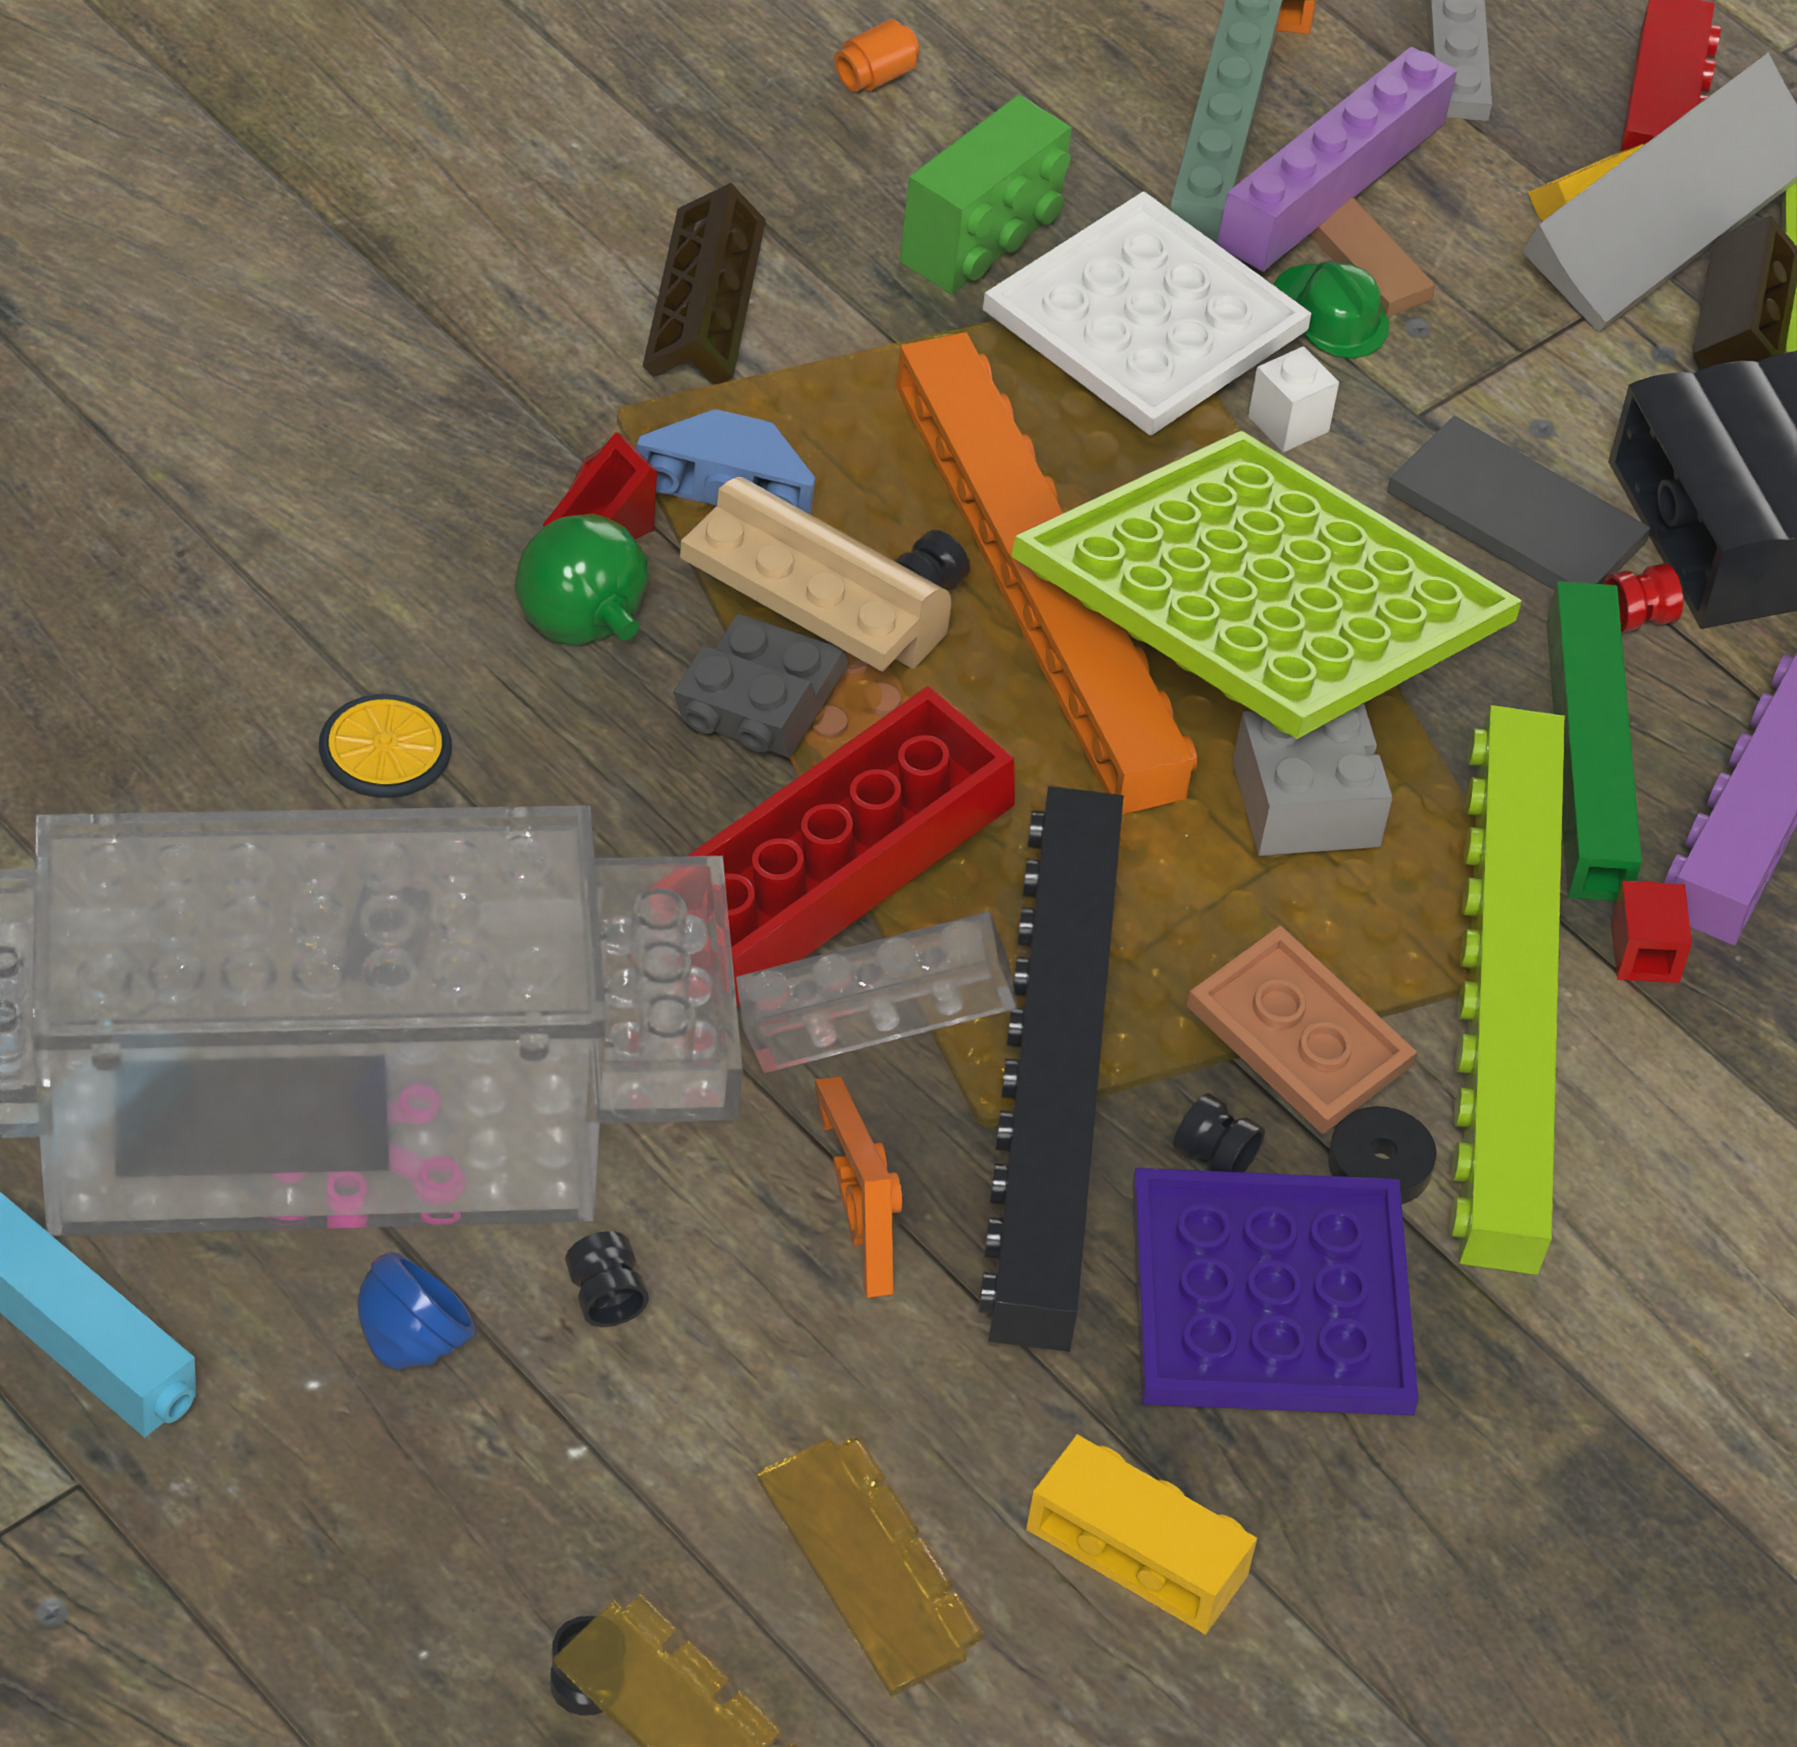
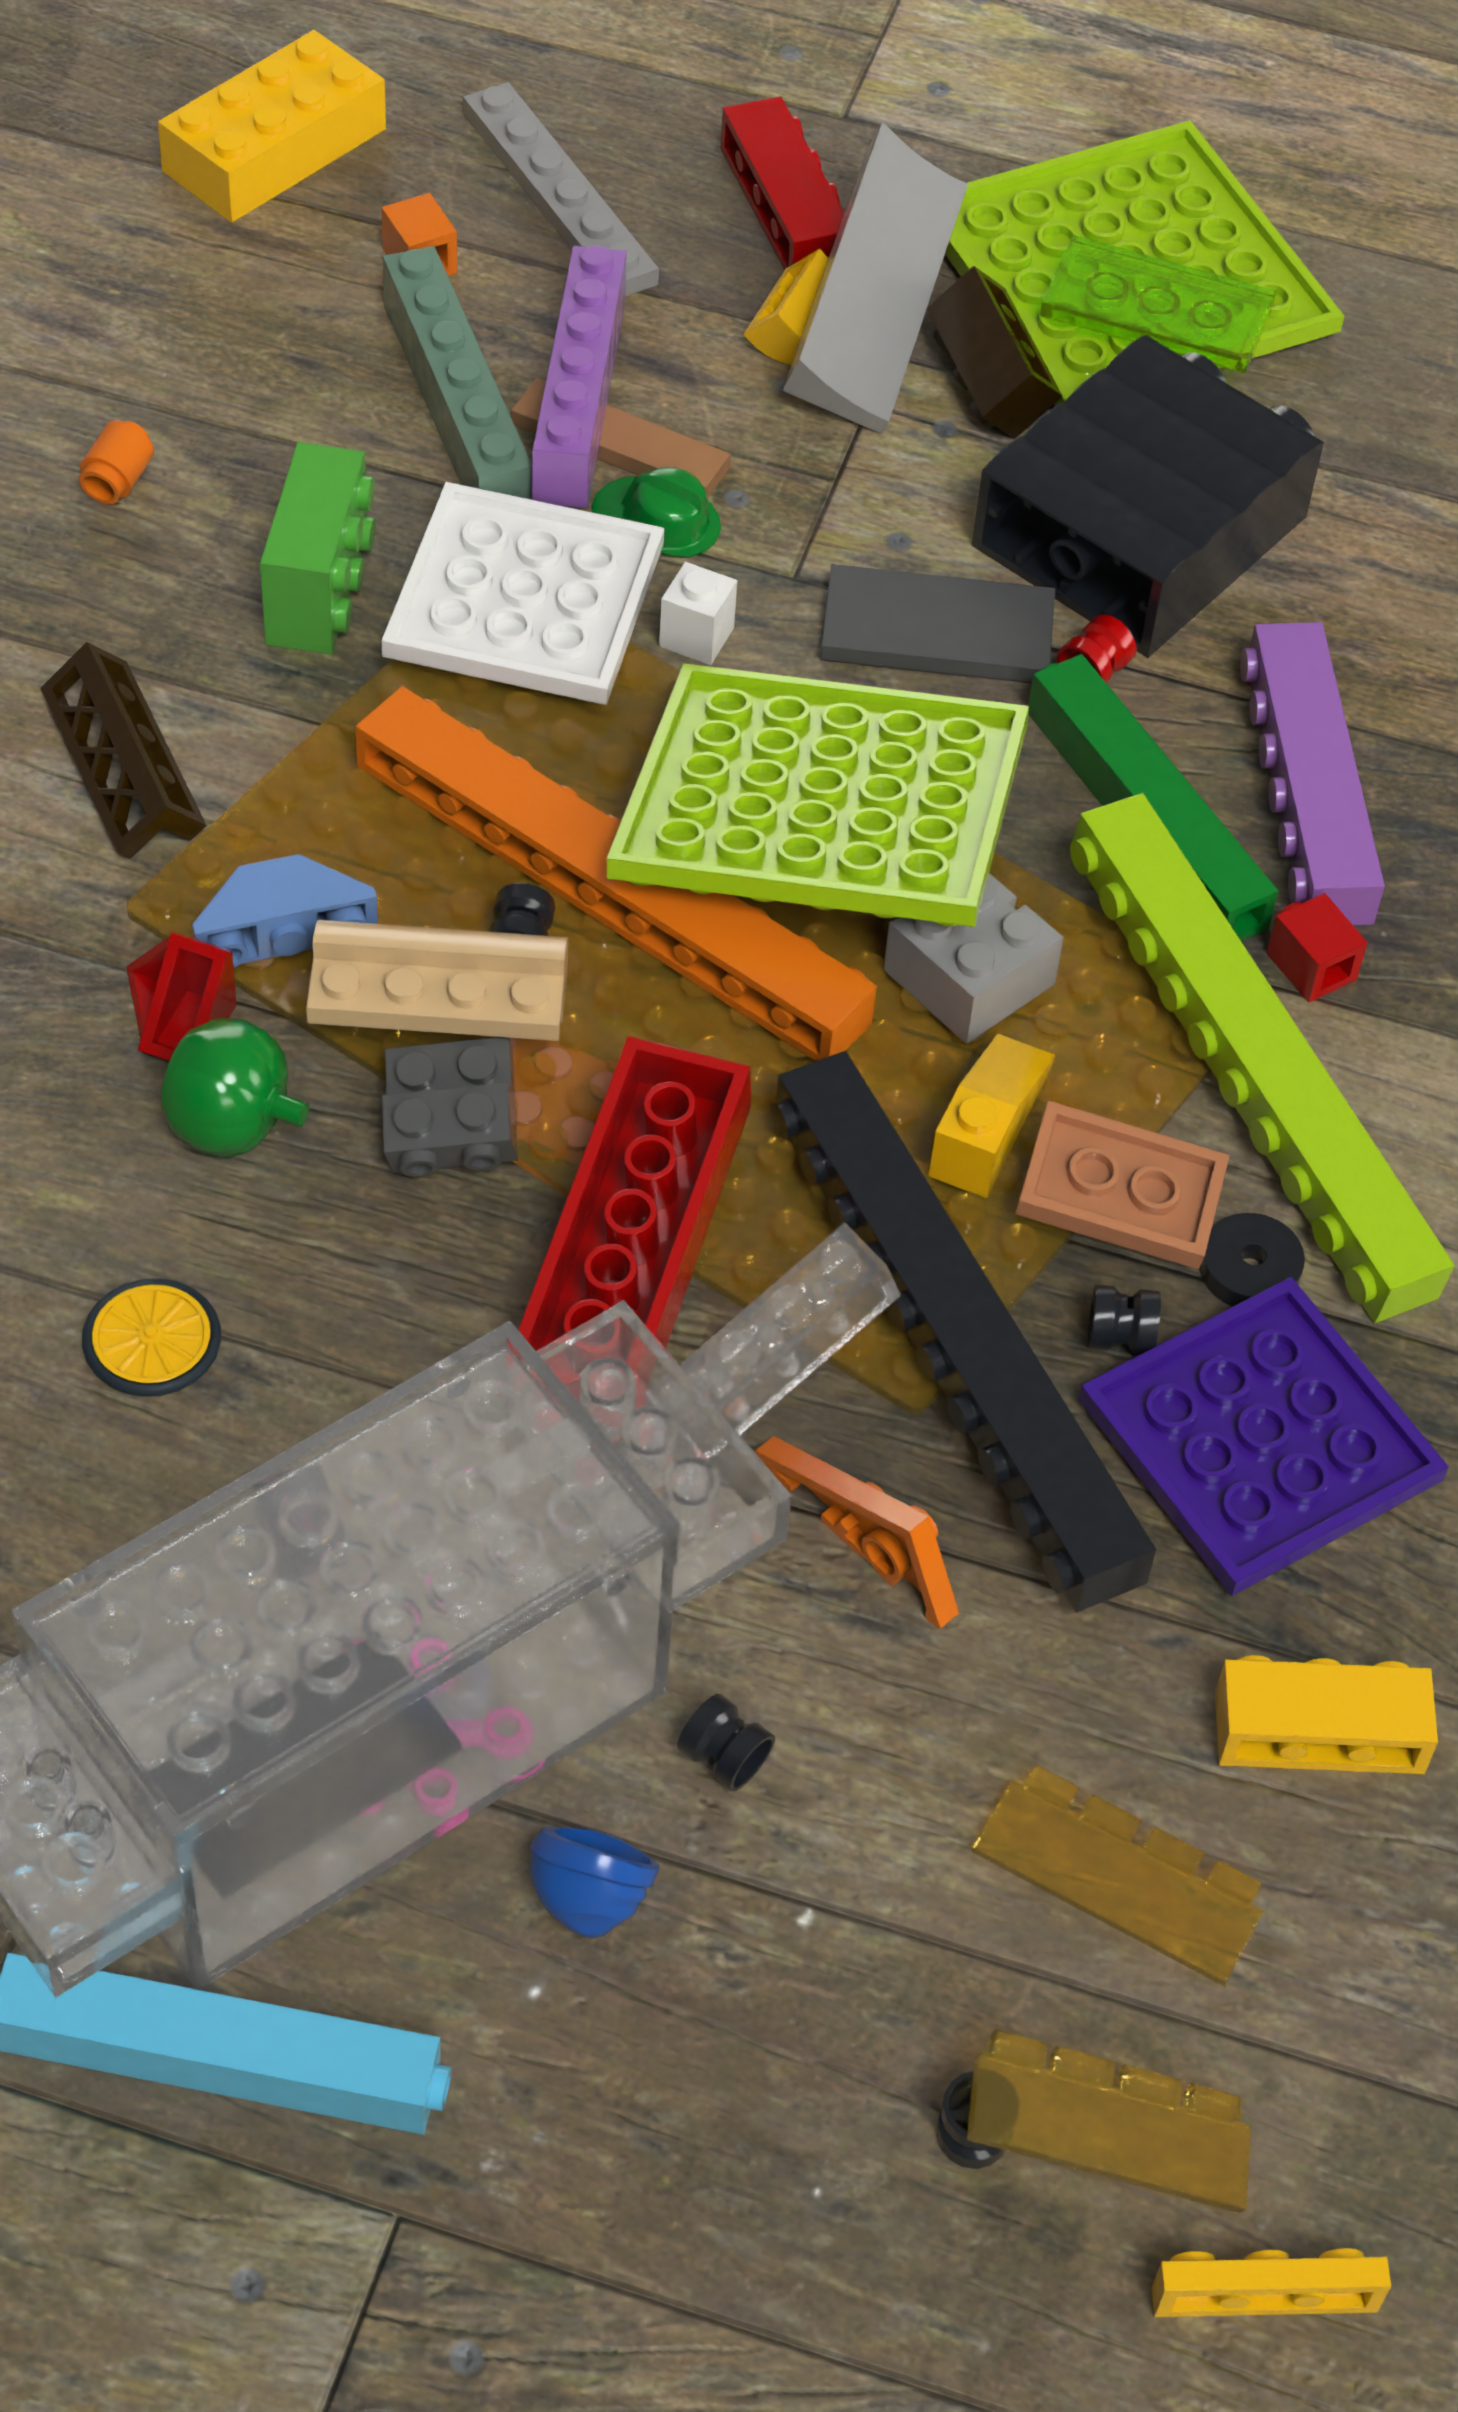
camera: 30 degrees left, 5 degrees up
(1223, 912) = (988, 1114): none -> yellow slope

